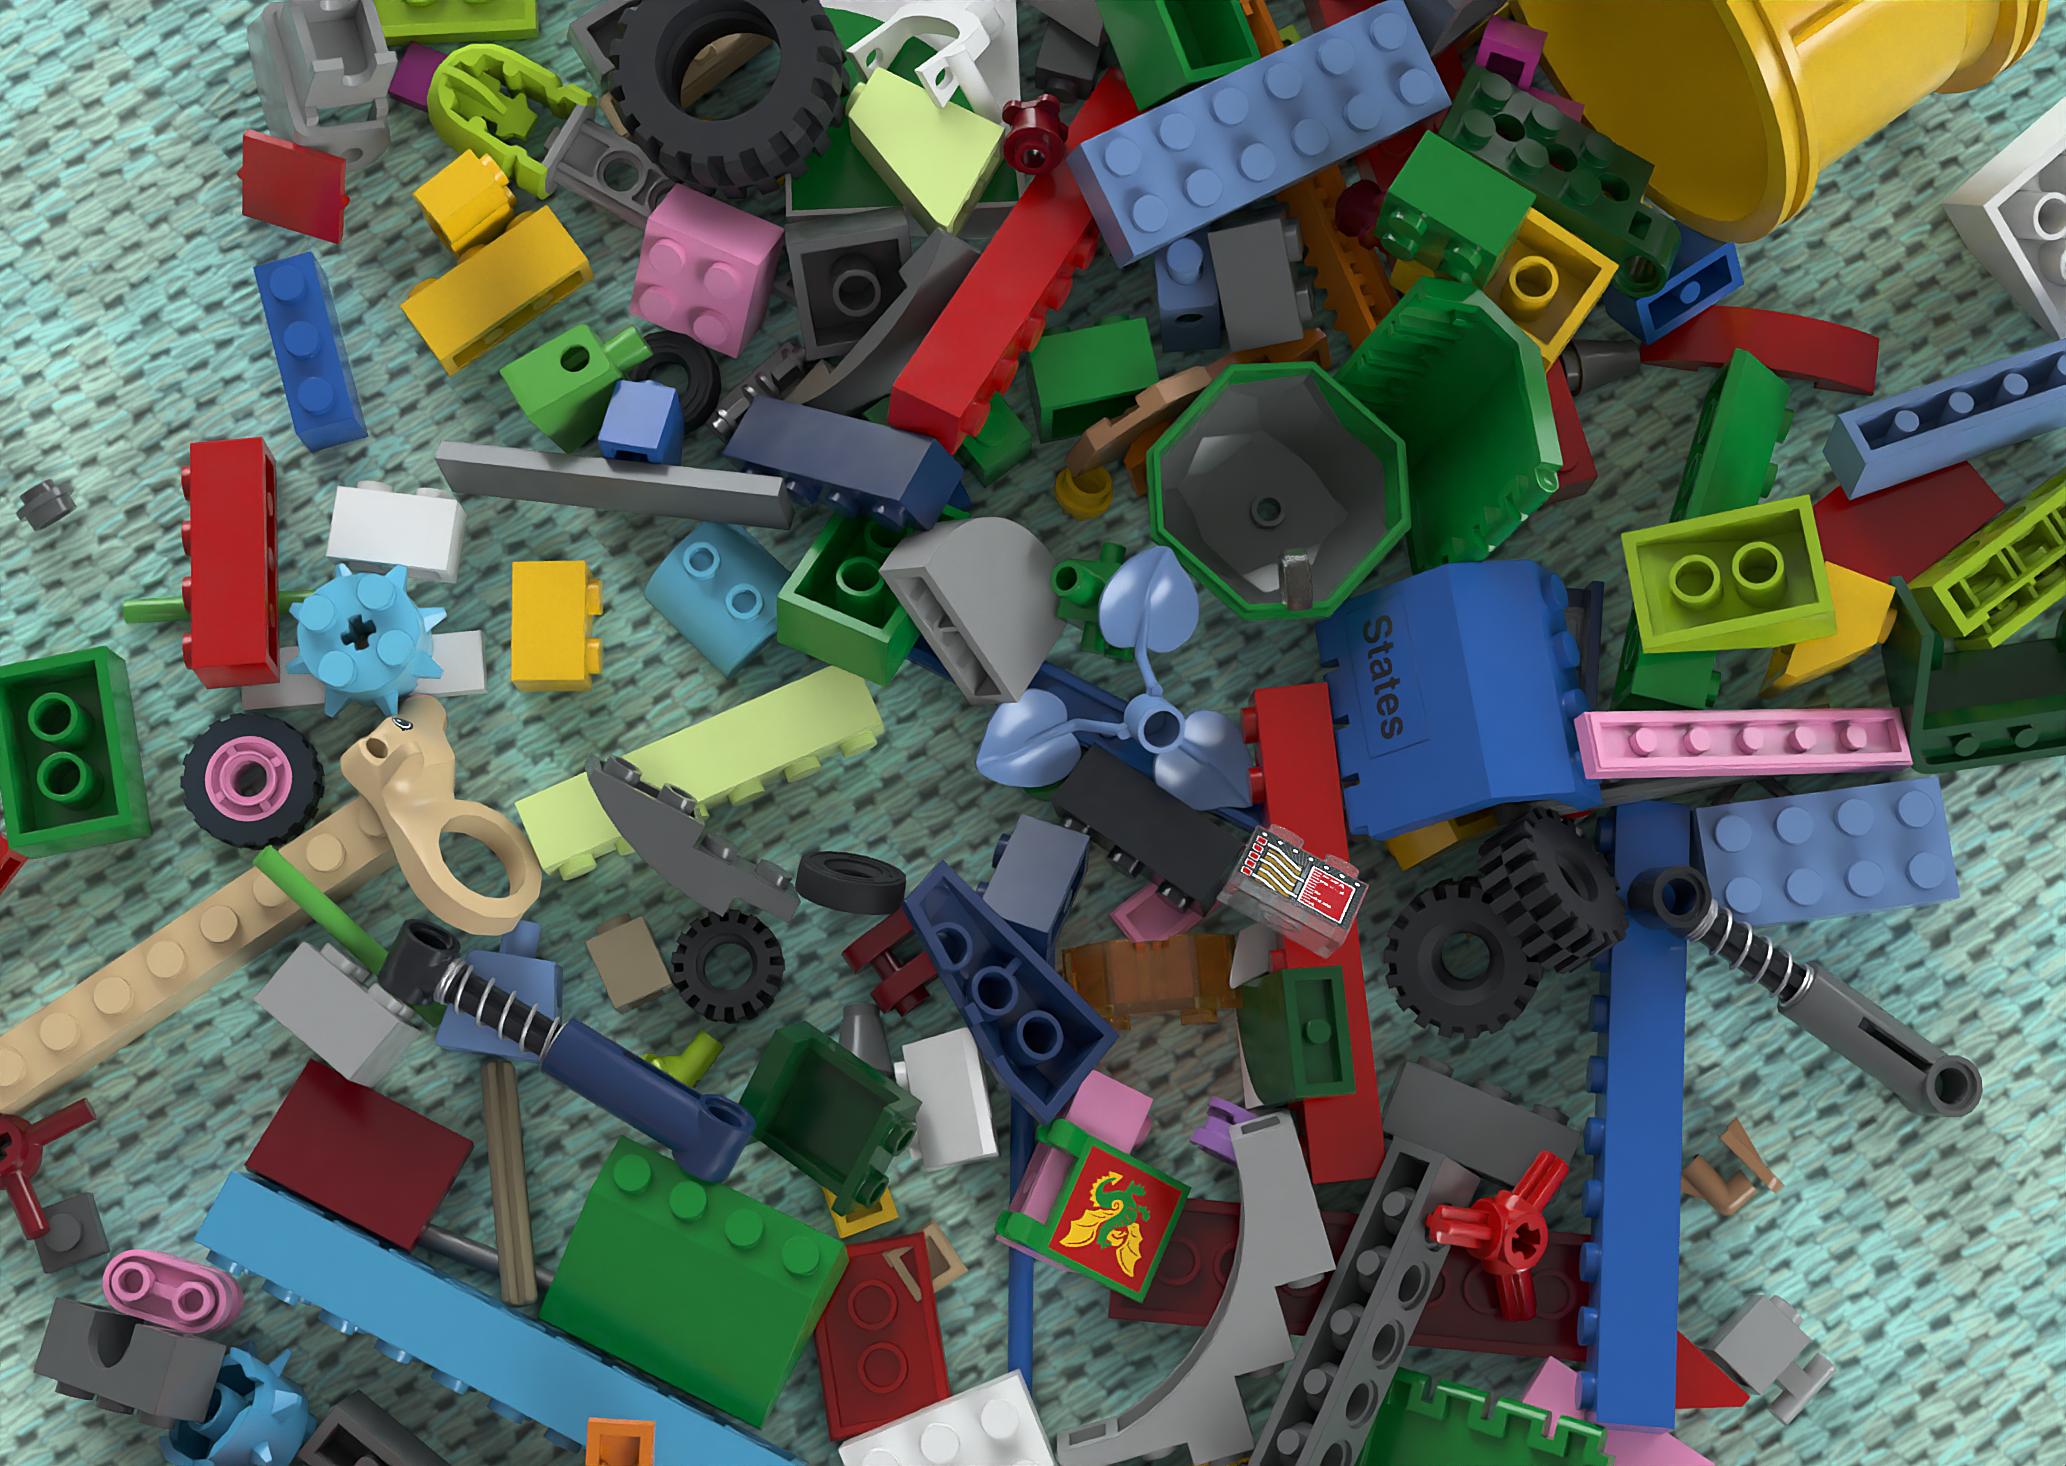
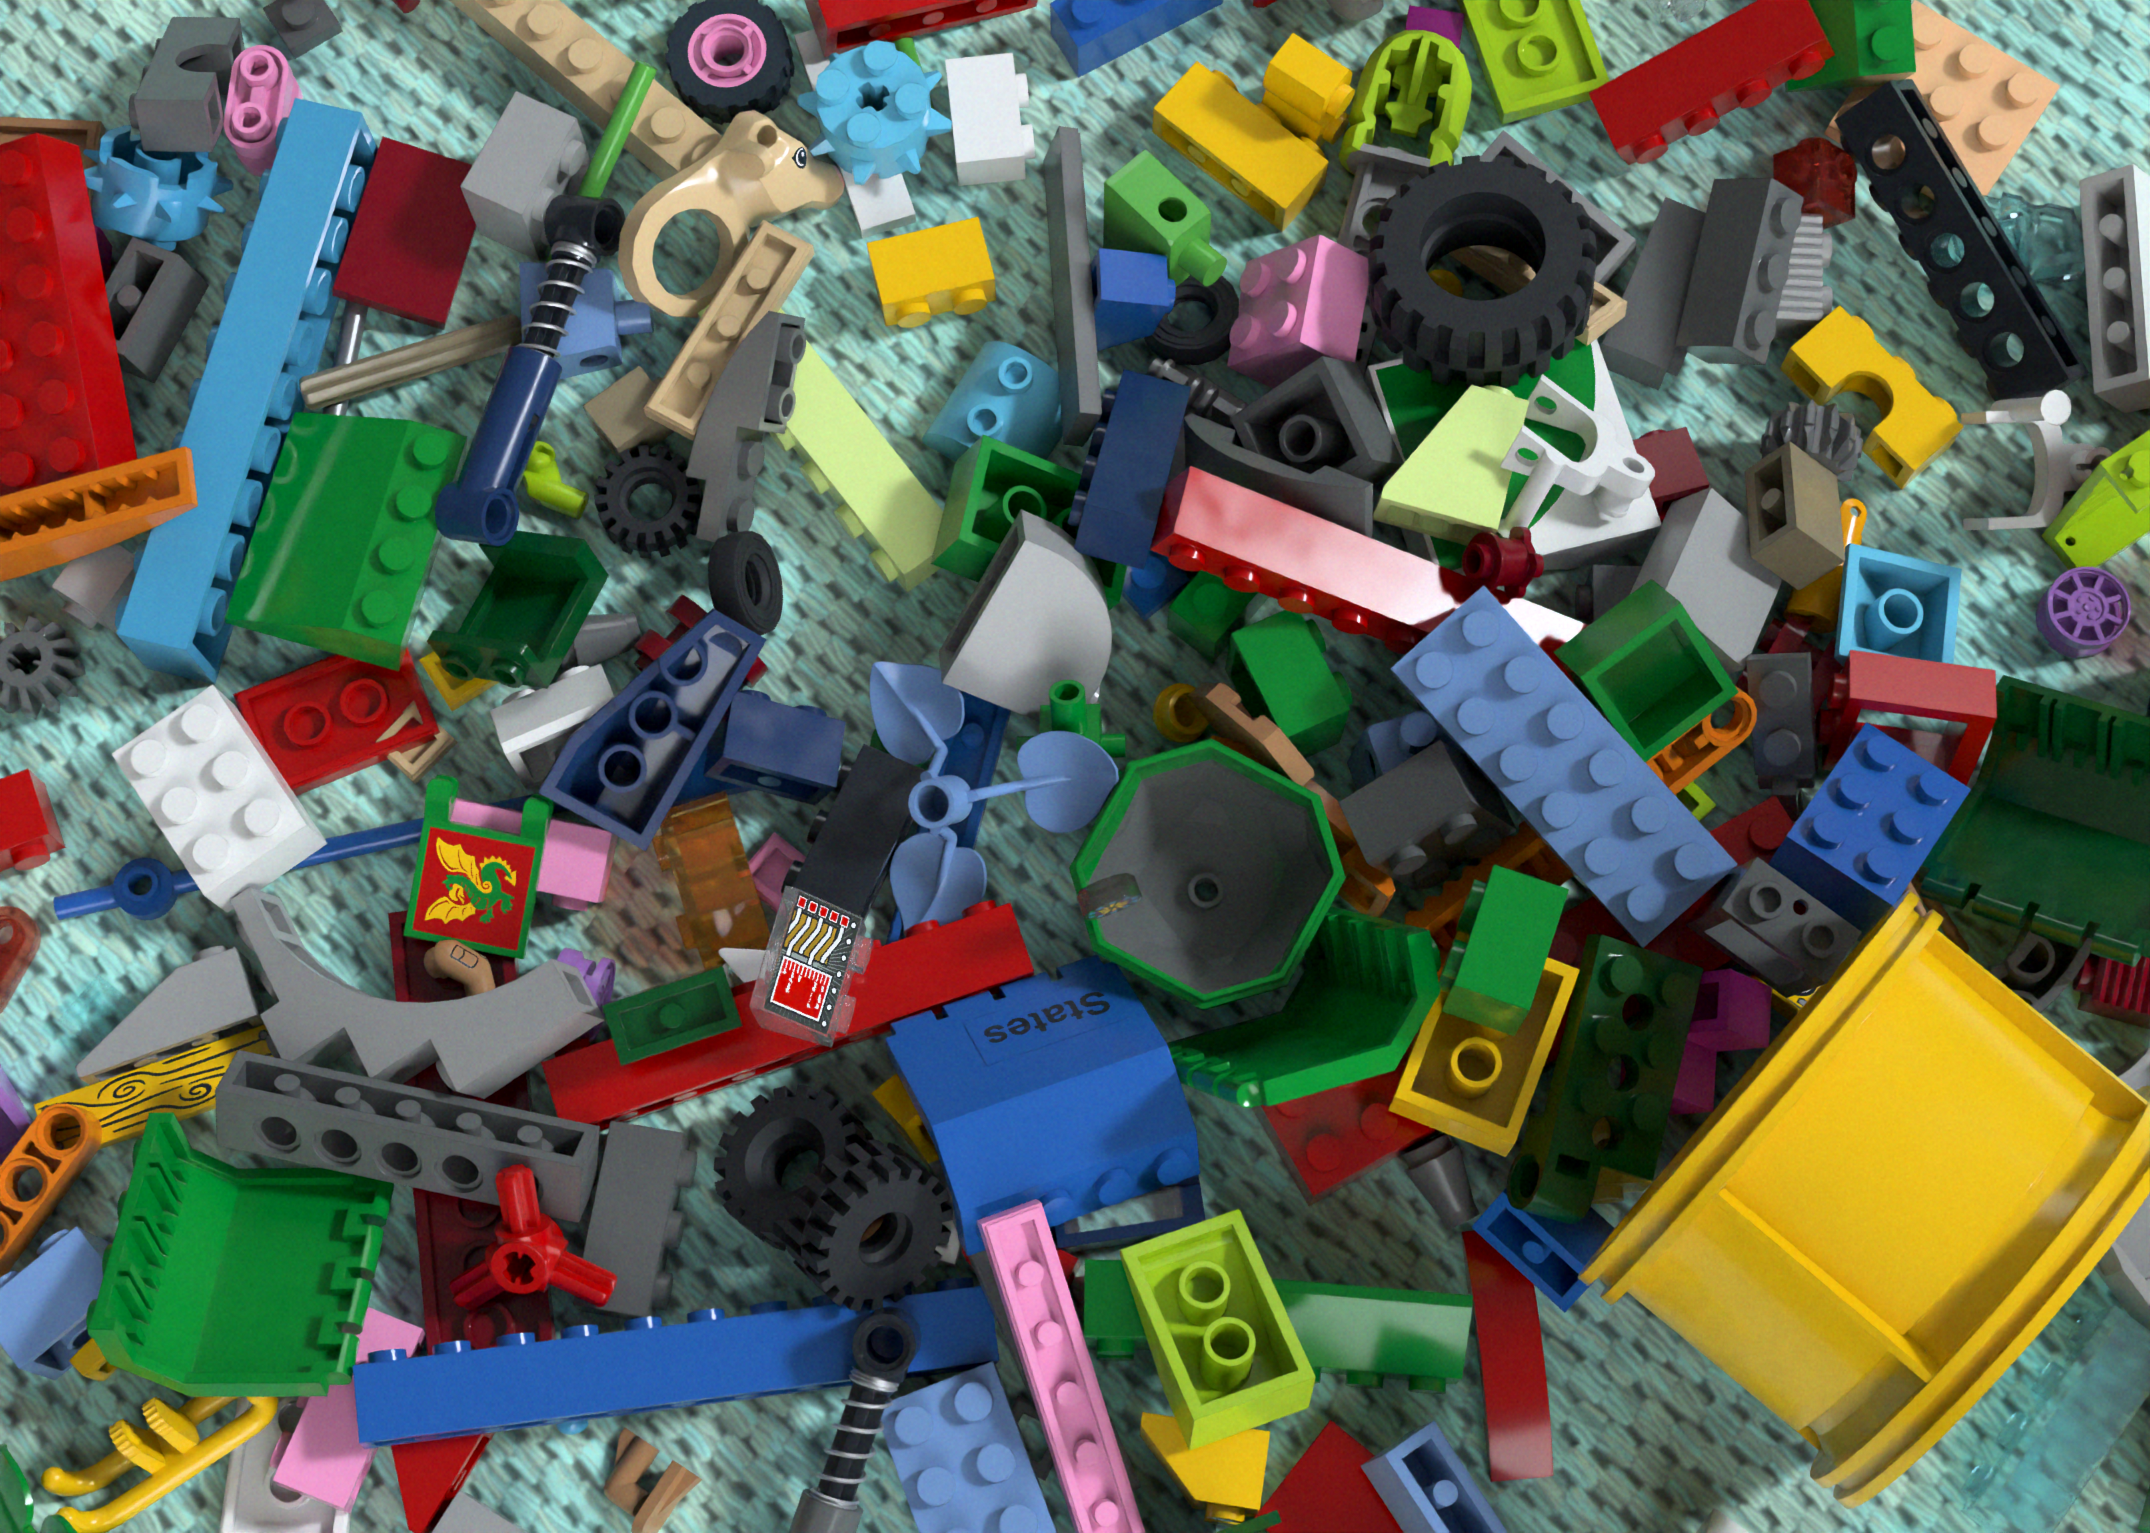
camera: 80 degrees right, 5 degrees down
(574, 838) = (752, 288): none -> tan tile
(1190, 1245) = (461, 964): none -> medium nougat arm

